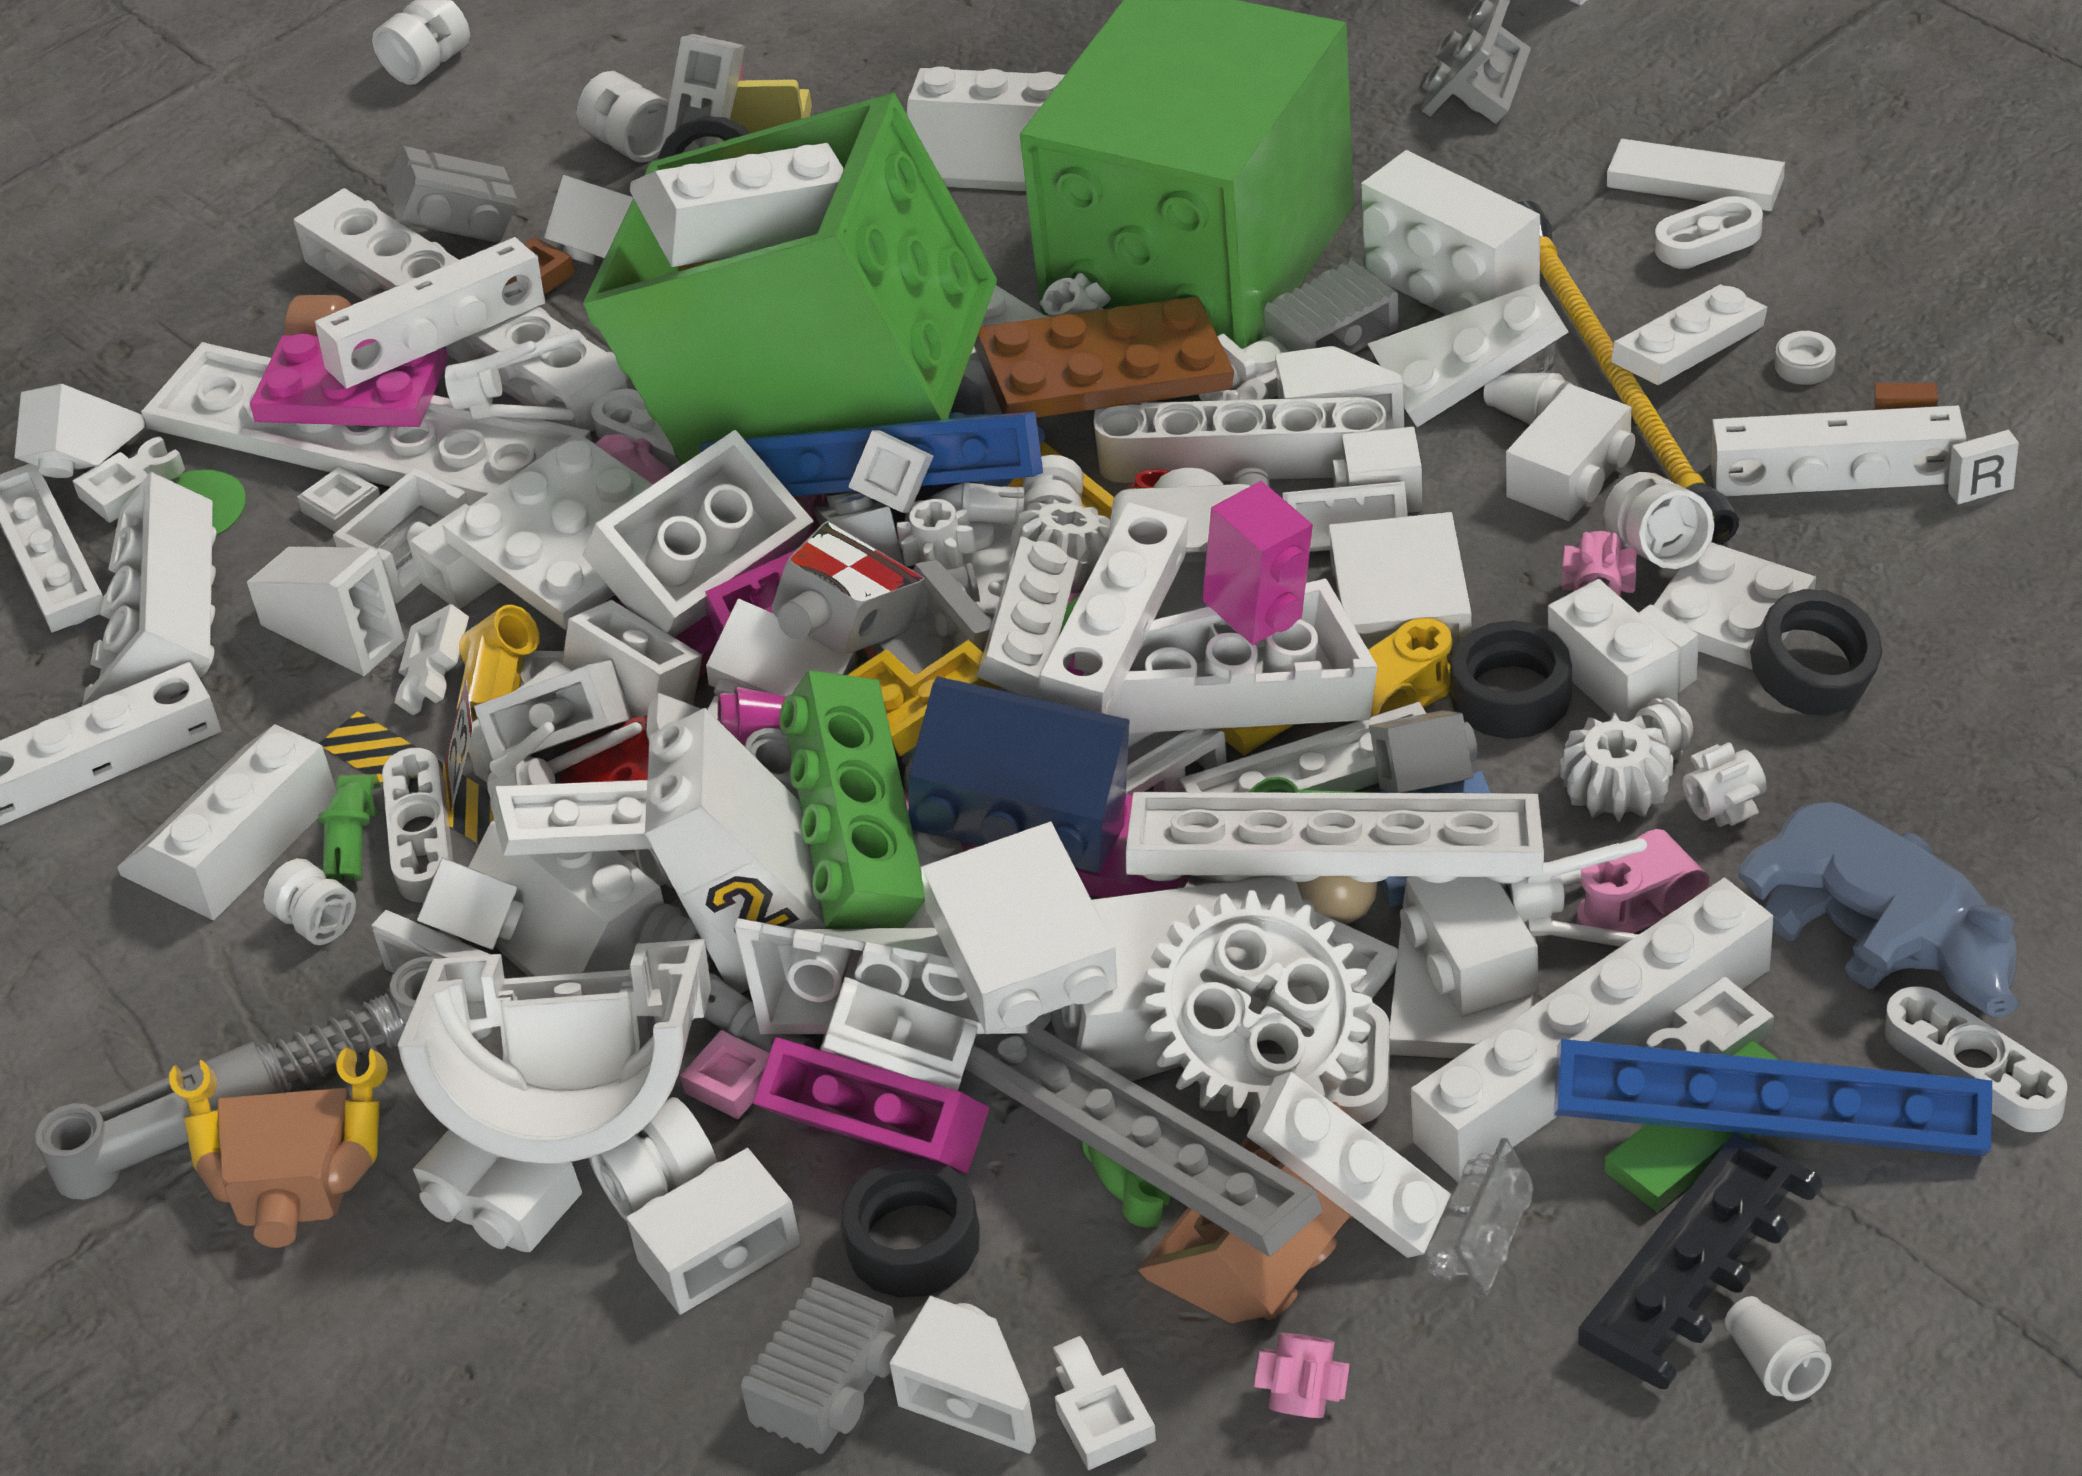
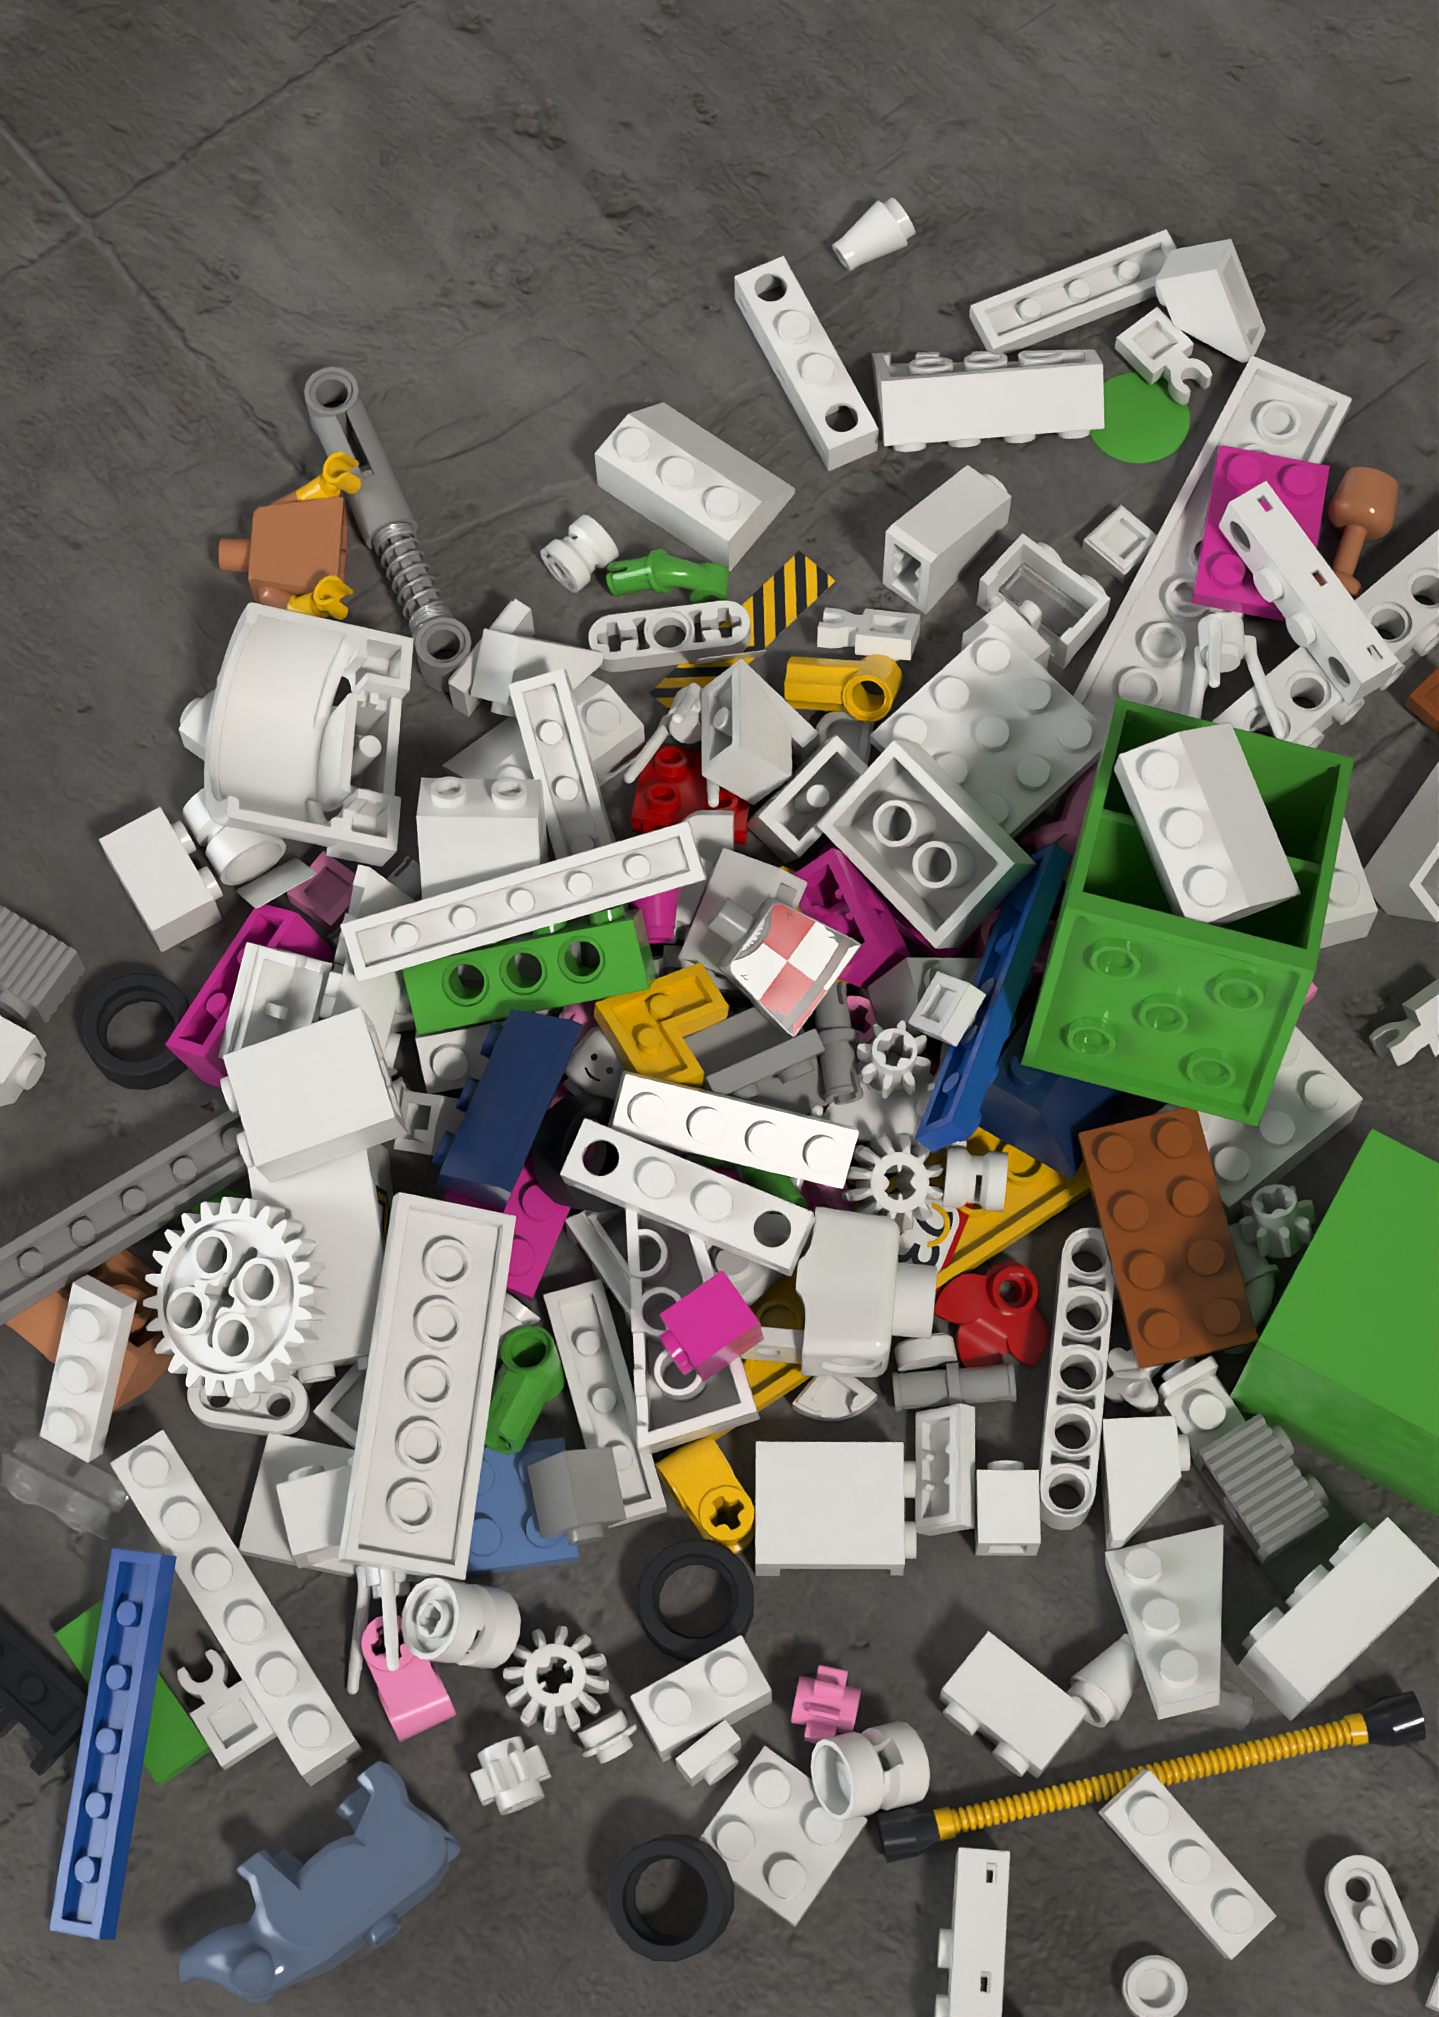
camera: 90 degrees right, 25 degrees up
(727, 1097) = (276, 882): none -> white sticker
(790, 763) = (523, 901): none -> white plate
(1582, 811) = (460, 1623): none -> white wheel
(1964, 1031) = (110, 1957): white beam -> none

